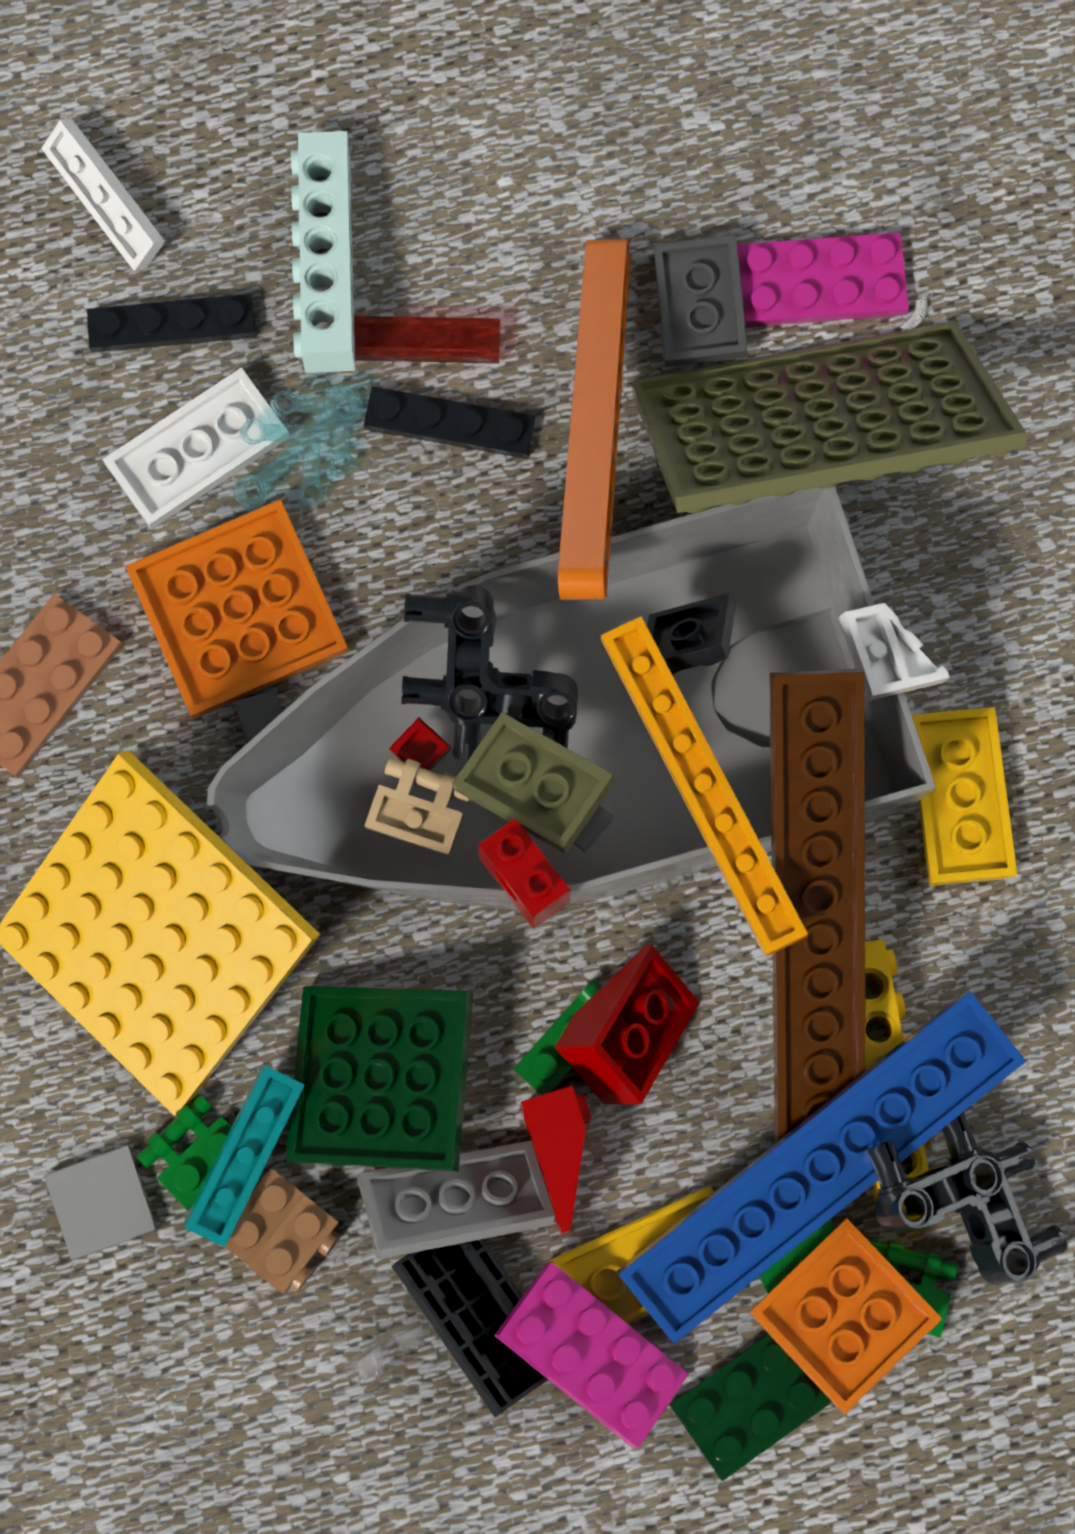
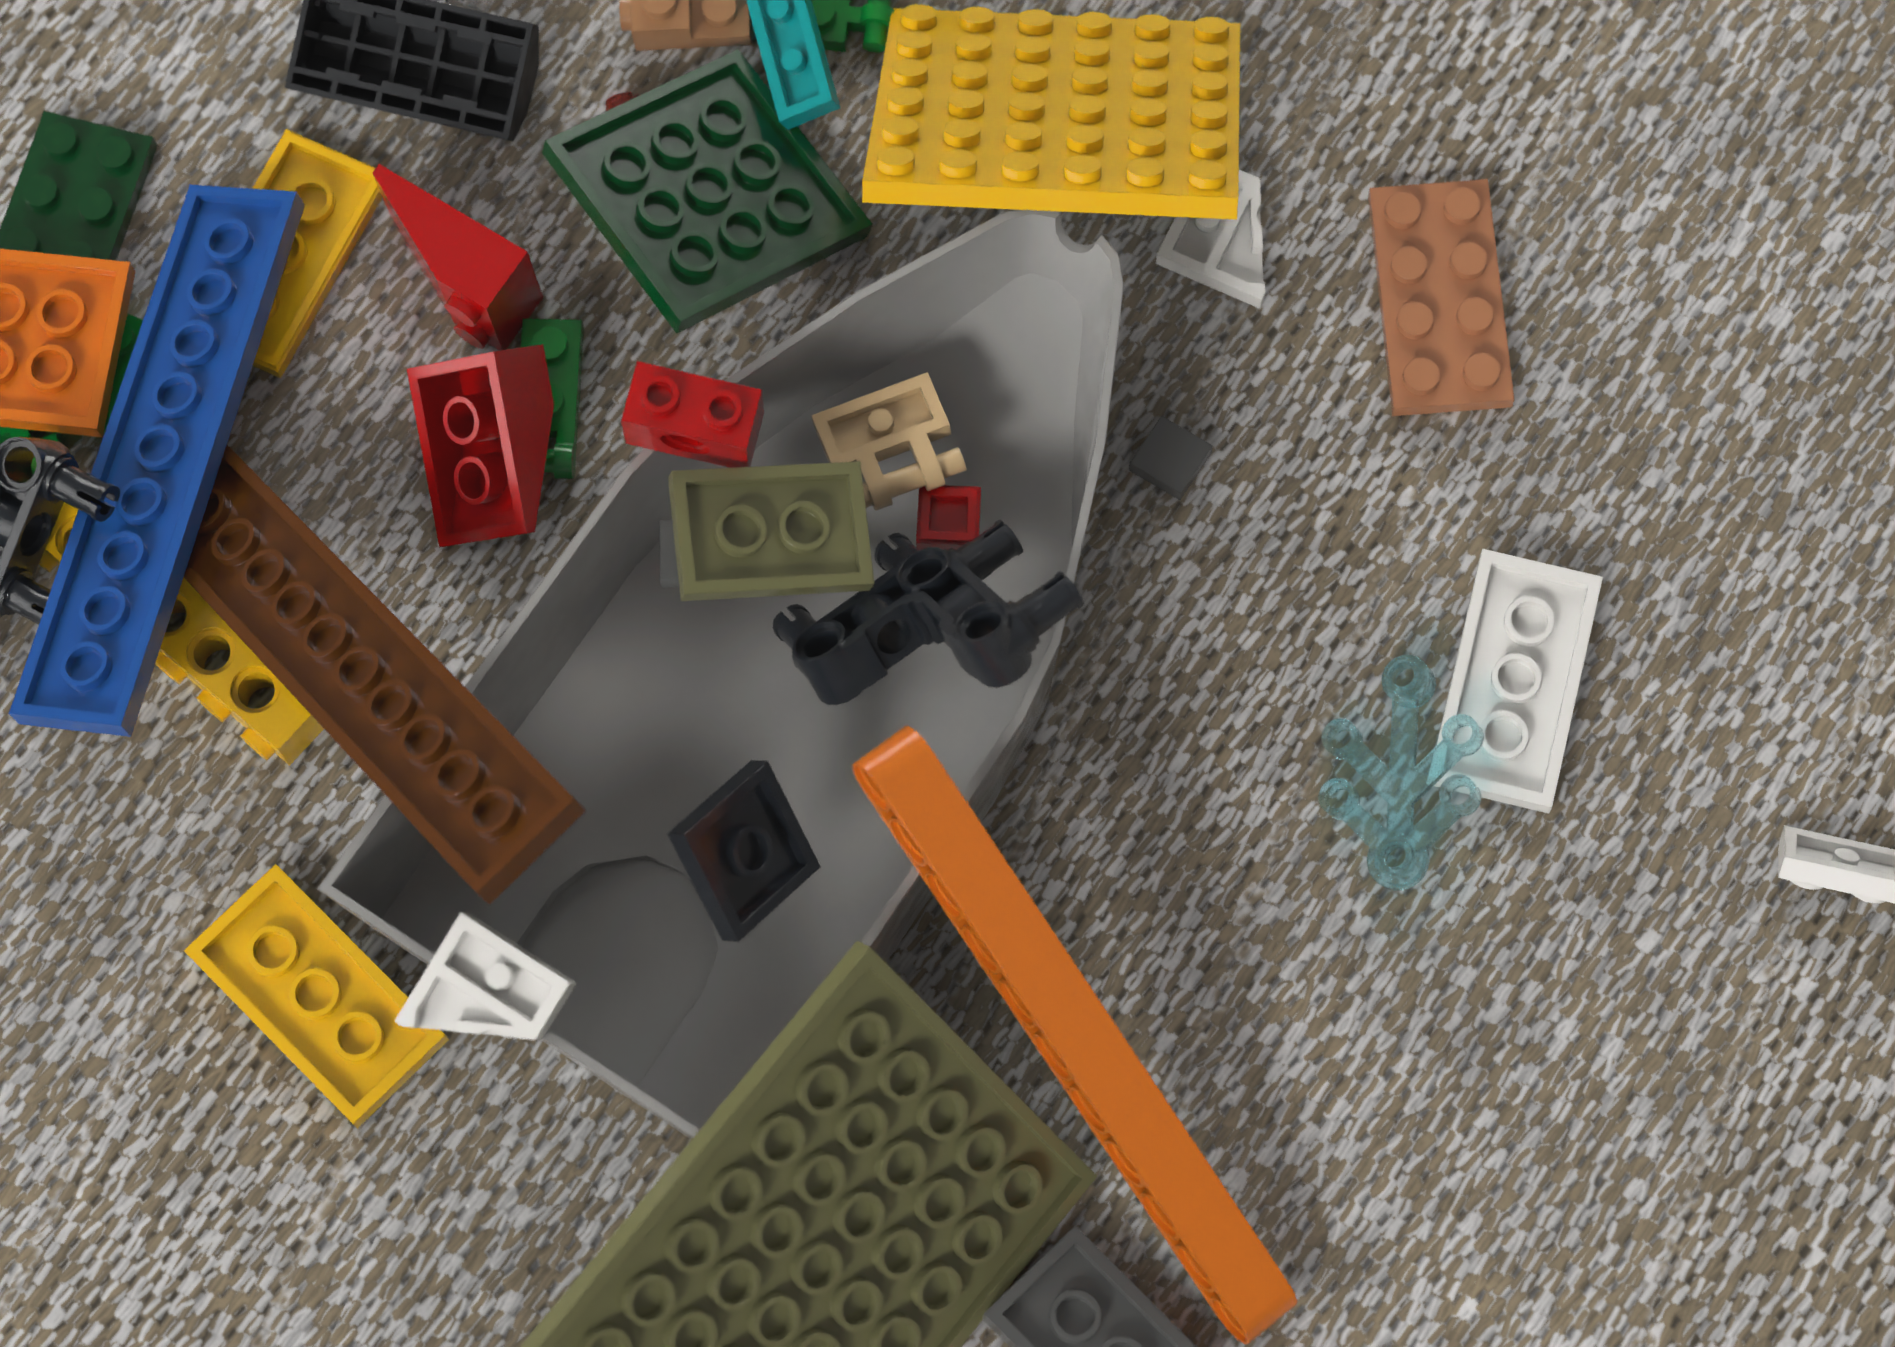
camera: 145 degrees right, 5 degrees down
(171, 323) = (1683, 802): black plate -> none
(236, 609) = (1302, 544): orange plate -> none
(334, 346) = (1593, 1055): light aqua brick -> none
(425, 1210) = (495, 156): light grey plate -> none
(427, 339) = (1387, 1013): clear red plate -> none
(449, 422) = (1262, 951): black plate -> none
(591, 1355) = (267, 109): dark pink plate -> none
(703, 787) = (581, 671): light orange plate -> none

